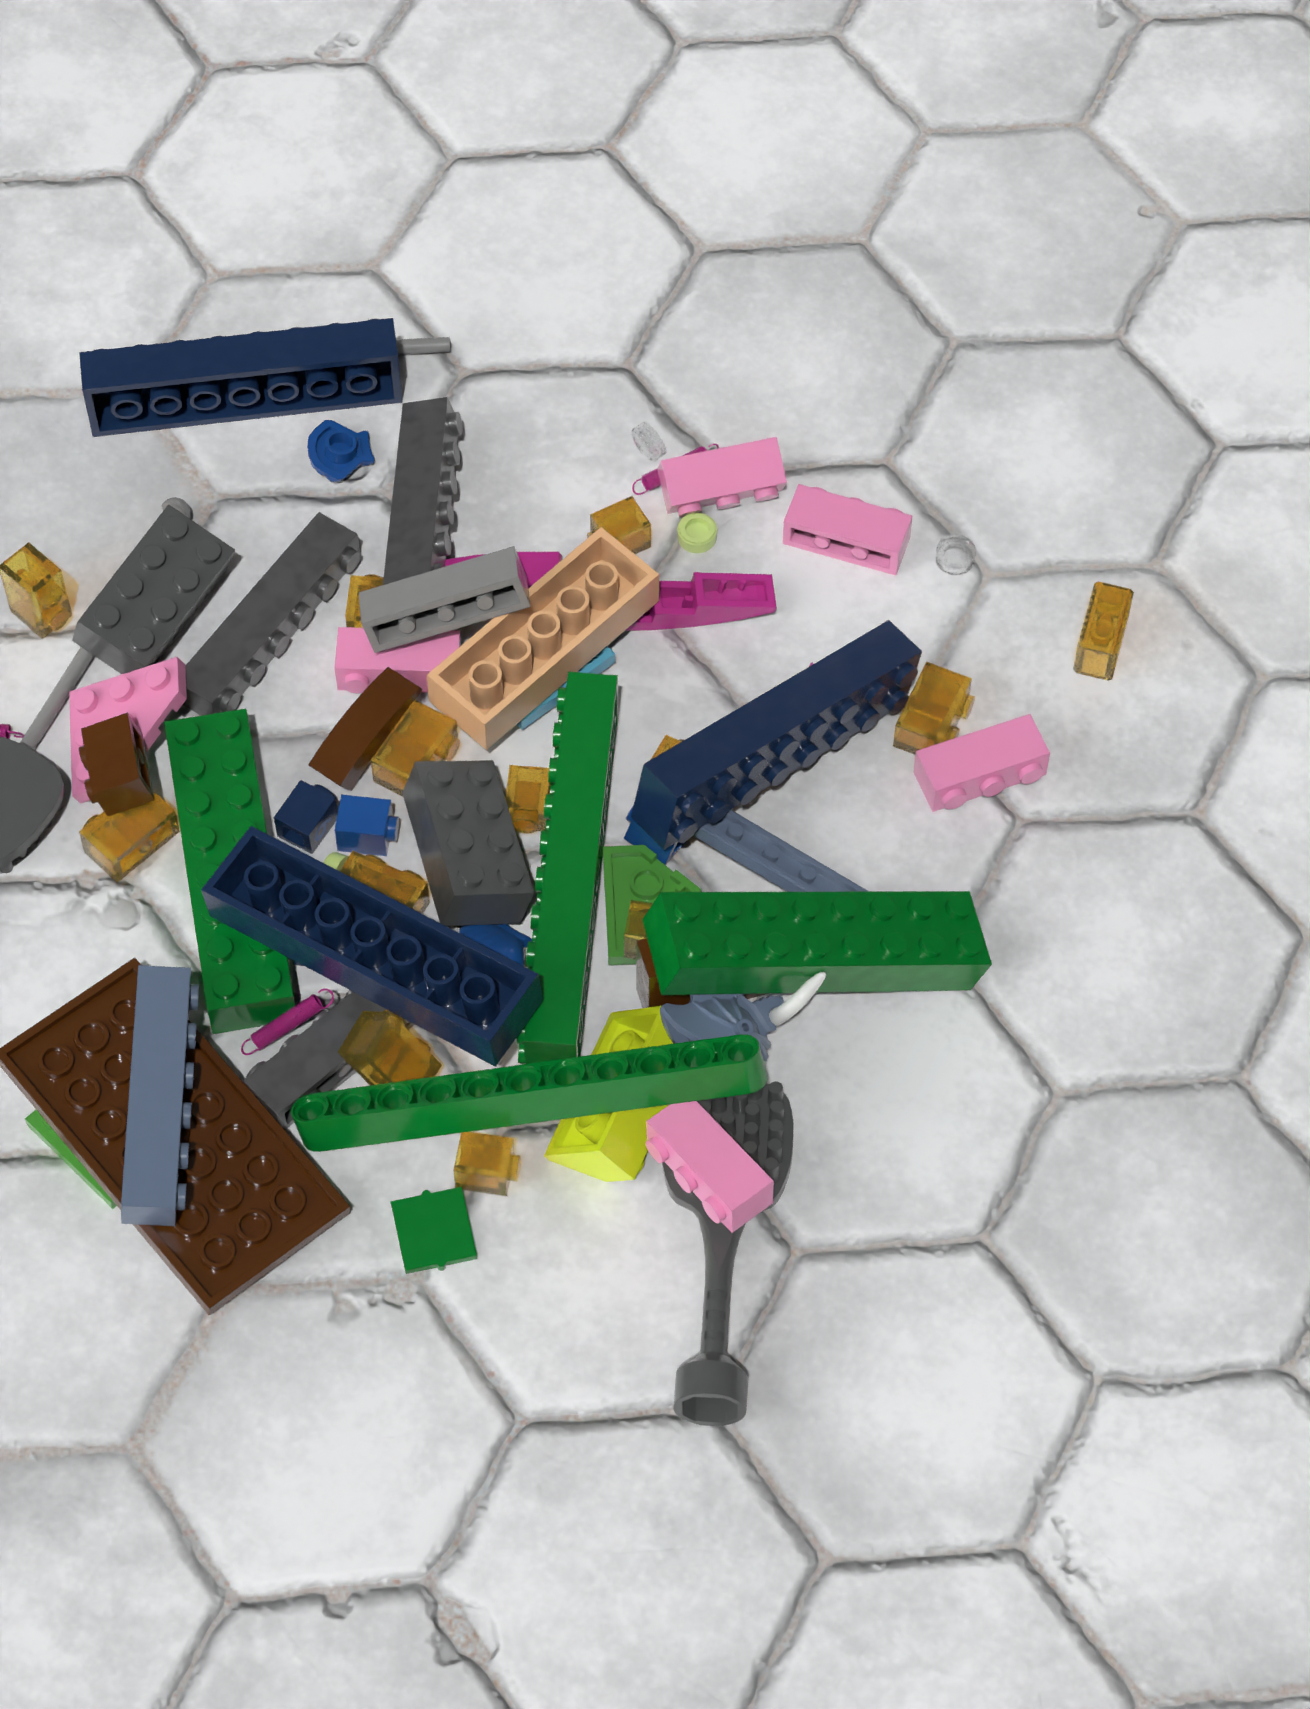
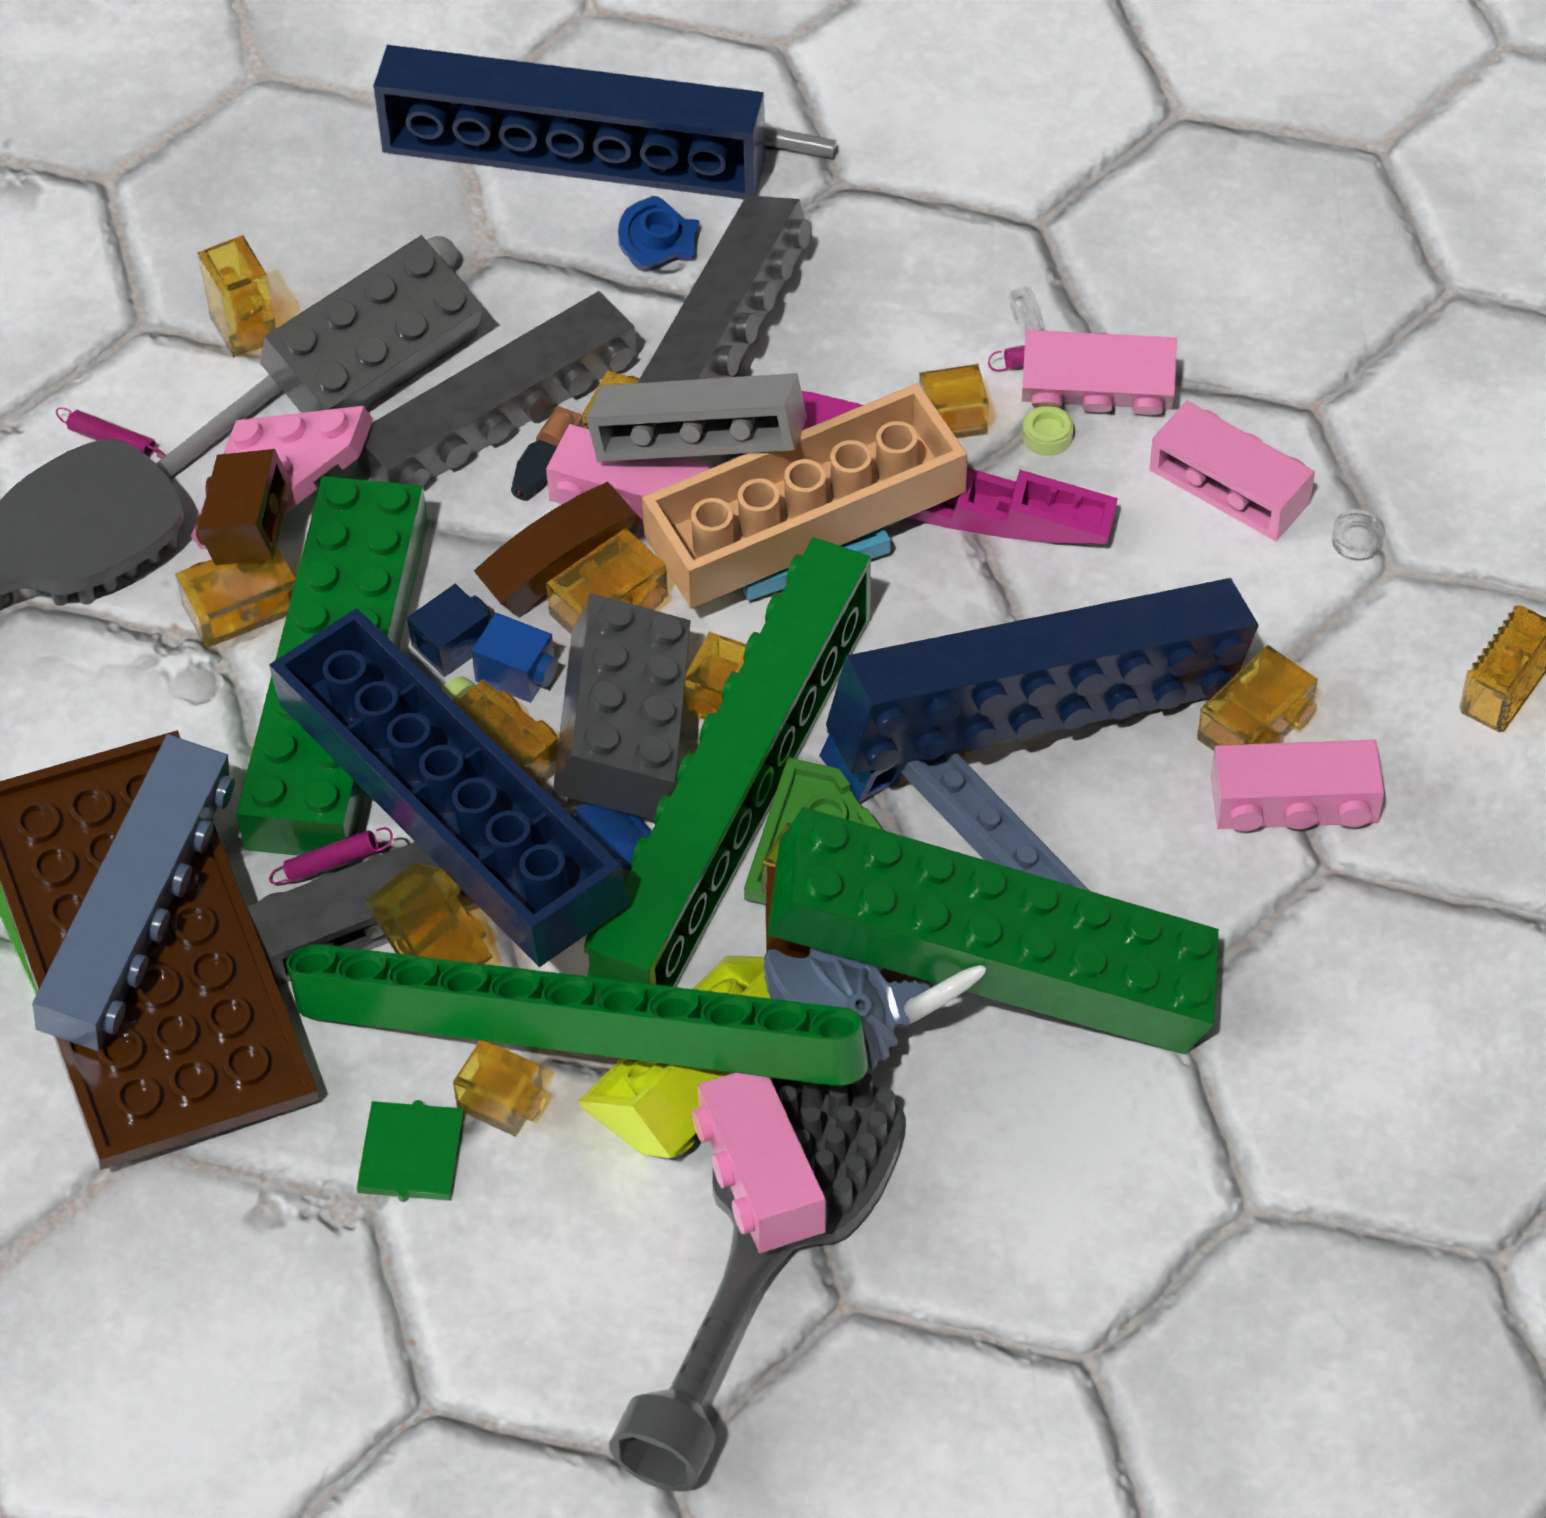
camera: 20 degrees right, 5 degrees down
(321, 655) = (532, 465): none -> black piece

